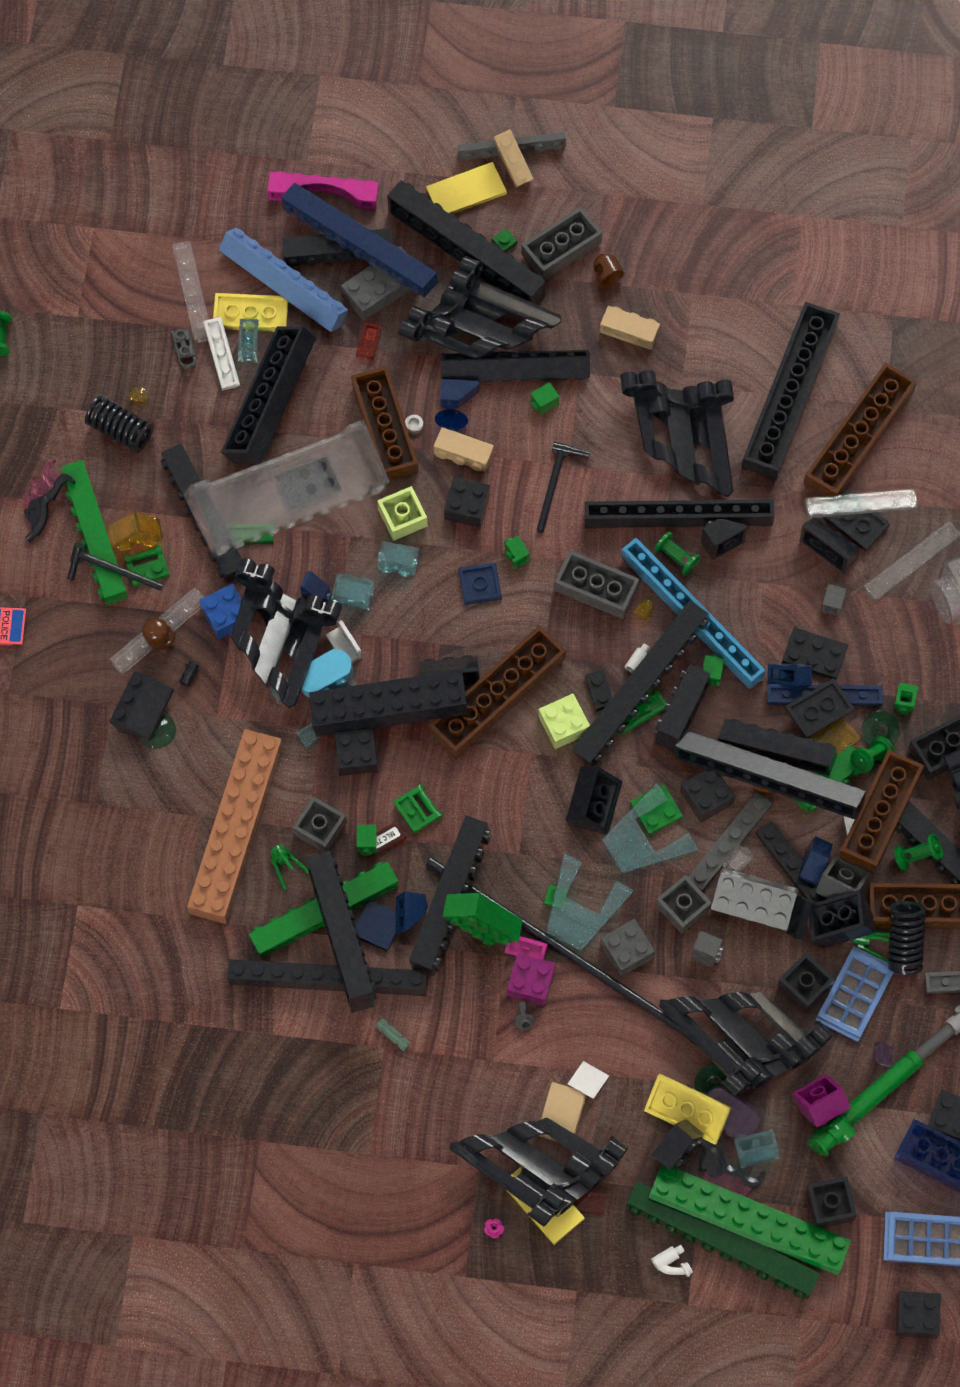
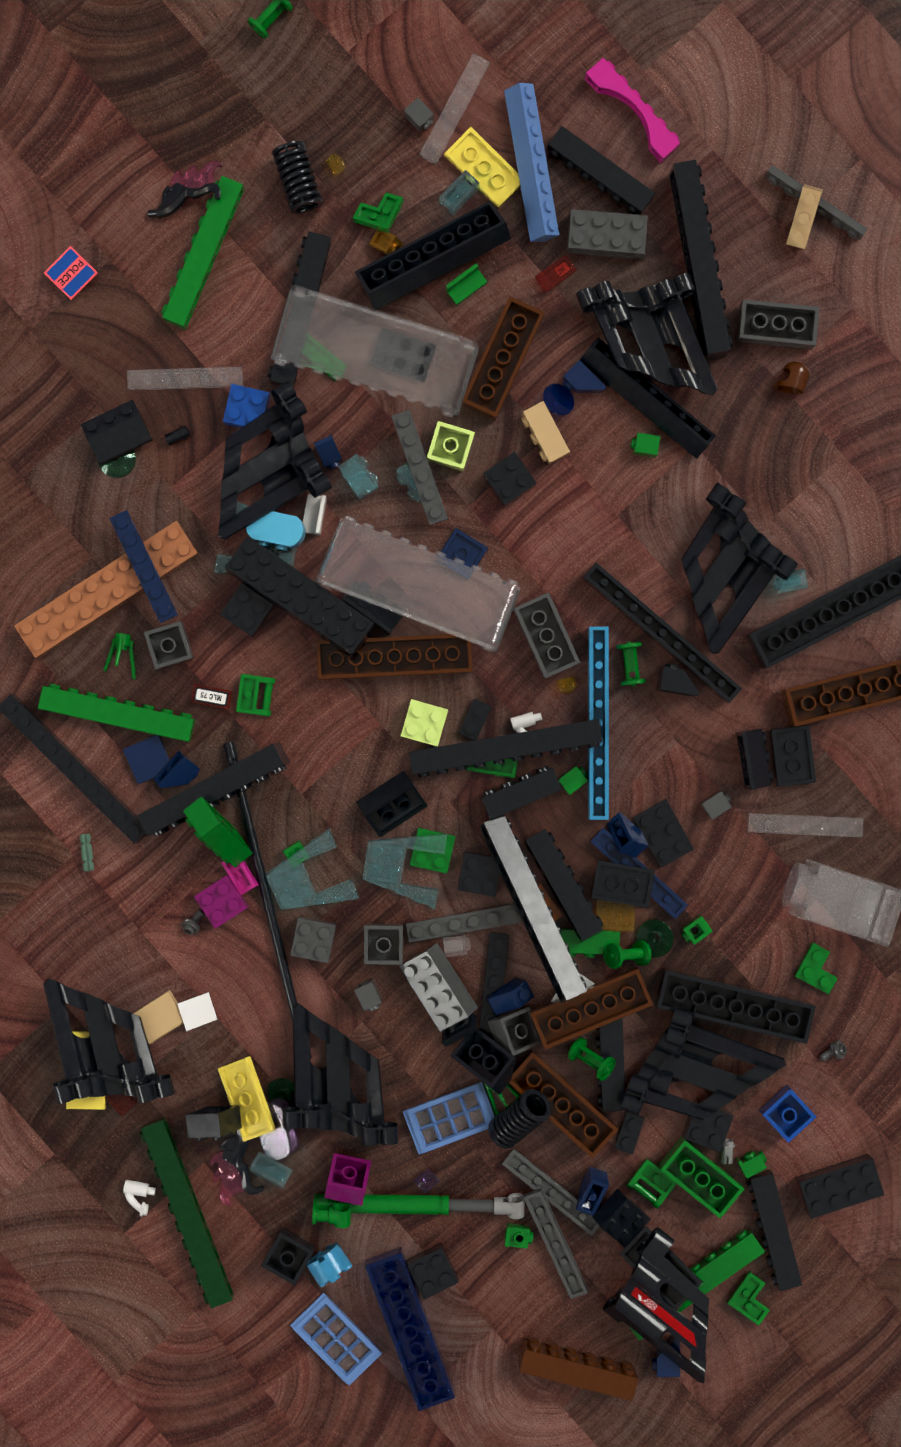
camera: 40 degrees right, 20 degrees up
(79, 555) = (171, 265): black bar -> none
(135, 529) = (232, 282): clear yellow brick -> none
(154, 569) = (219, 322): green plate -> none
(156, 632) = (177, 382): reddish brown helmet -> none
(171, 314) = (419, 115): none -> dark grey brick
(185, 351) = (403, 157): dark grey piece -> none
(204, 403) = (381, 217): none -> green plate
(221, 353) = (430, 184): white tile -> none
(223, 417) = (385, 242): none -> pearl gold bracket
(250, 779) = (143, 566): none -> dark blue plate
(310, 399) = (465, 284): none -> green panel
(341, 931) = (104, 749): black brick -> none
(359, 240) = (617, 183): dark blue brick -> none
(366, 839) = (193, 688): green brick -> none
(393, 544) = (419, 467): none -> dark grey plate
(414, 424) = (527, 376): white tile -> none
(467, 189) = (746, 209): light yellow tile -> none
(469, 620) = (418, 583): none -> clear windscreen
(493, 1233) = (33, 1064): dark pink plate -> none
(504, 240) = (736, 280): green plate -> none
(516, 551) = (510, 553): green brick -> none
(560, 450) = (620, 499): black bar -> none
(629, 327) = (767, 442): tan brick -> none
(741, 402) = (796, 582): none -> clear light blue slope
(750, 1219) = (219, 1218): green plate -> none
(805, 982) = (418, 1081): black brick -> none
(861, 503) = (807, 748): clear tile -> none
(868, 1180) = (328, 1264): none -> dark azure brick
(918, 1314) = (277, 1386): black brick -> none

